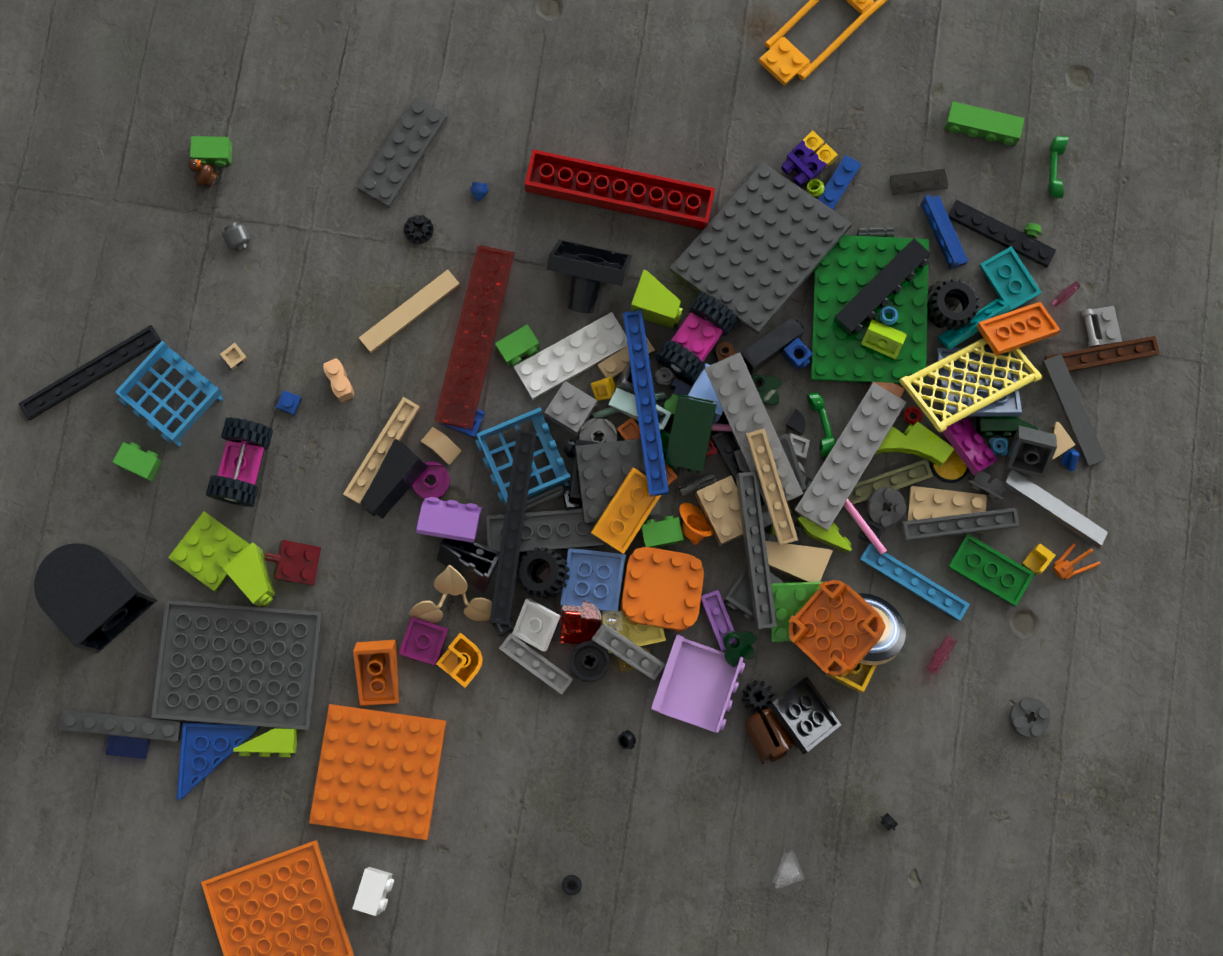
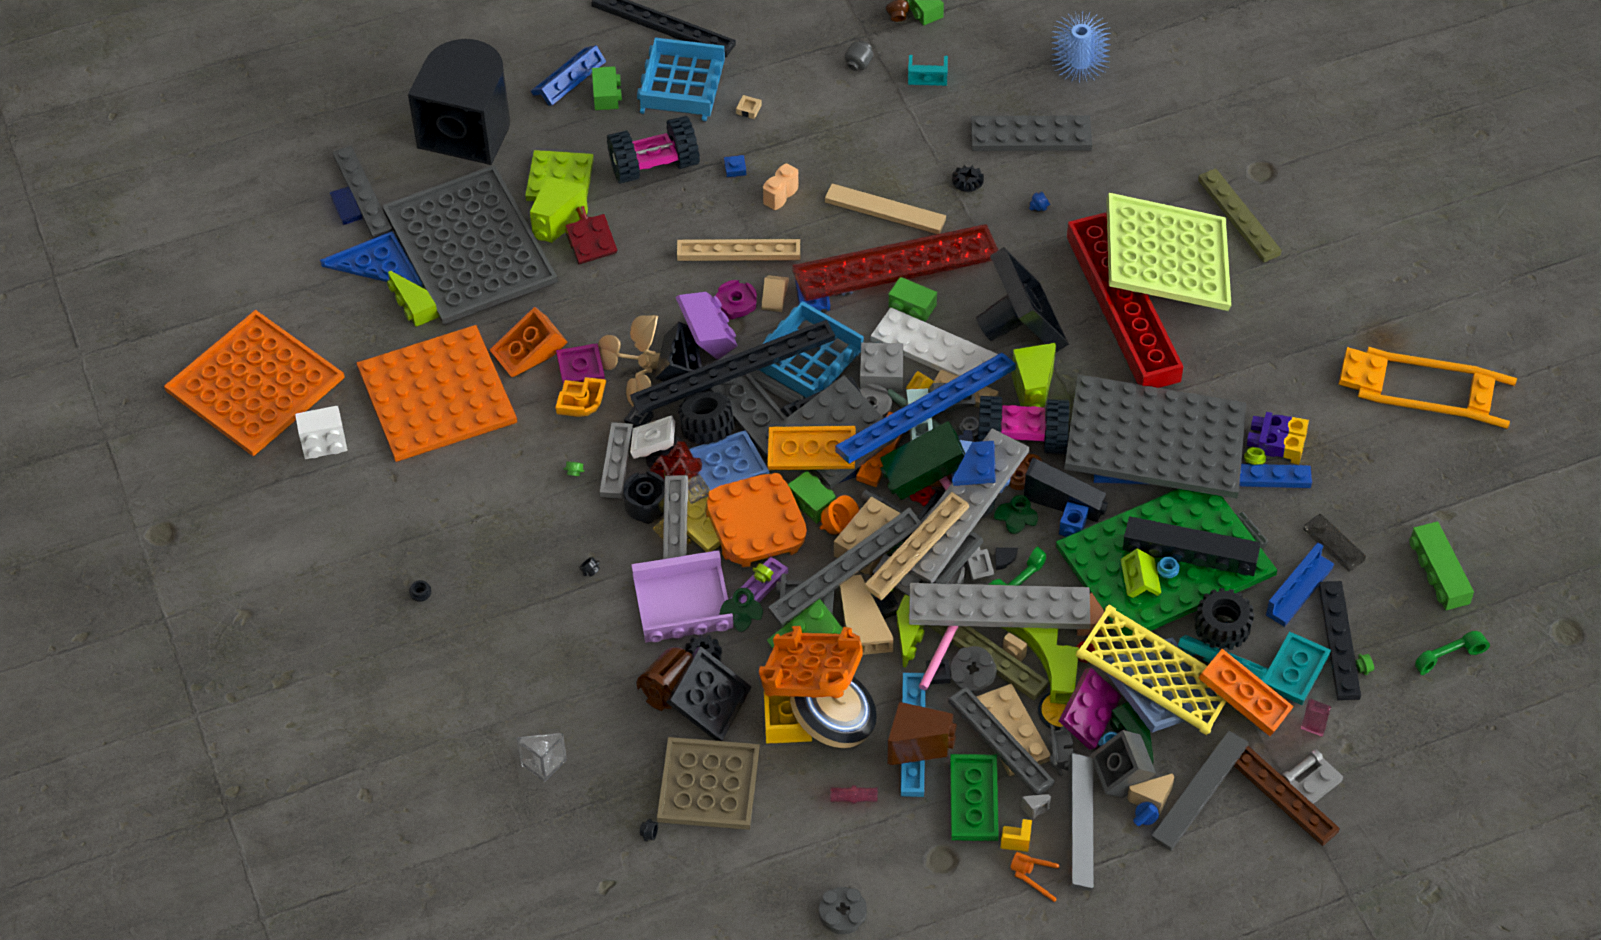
camera: 65 degrees right, 25 degrees down
(102, 482) = (569, 74): none -> blue fence
(288, 192) = (927, 73): none -> teal panel
(347, 60) = (1081, 46): none -> light blue piece
(393, 479) = (716, 266): black slope -> none
(524, 701) = (574, 468): none -> bright green plate
(582, 50) = (1239, 215): none -> olive plate
(598, 128) = (1168, 252): none -> yellowish green plate
(717, 613) = (762, 573): none -> lime plate
(734, 399) = (977, 465): none -> blue wing
(873, 755) = (708, 783): none -> dark tan plate
(883, 465) = (1015, 646): none -> tan plate
(933, 583) = (920, 734): none -> reddish brown slope
(1024, 531) = (1035, 805): none -> light grey slope

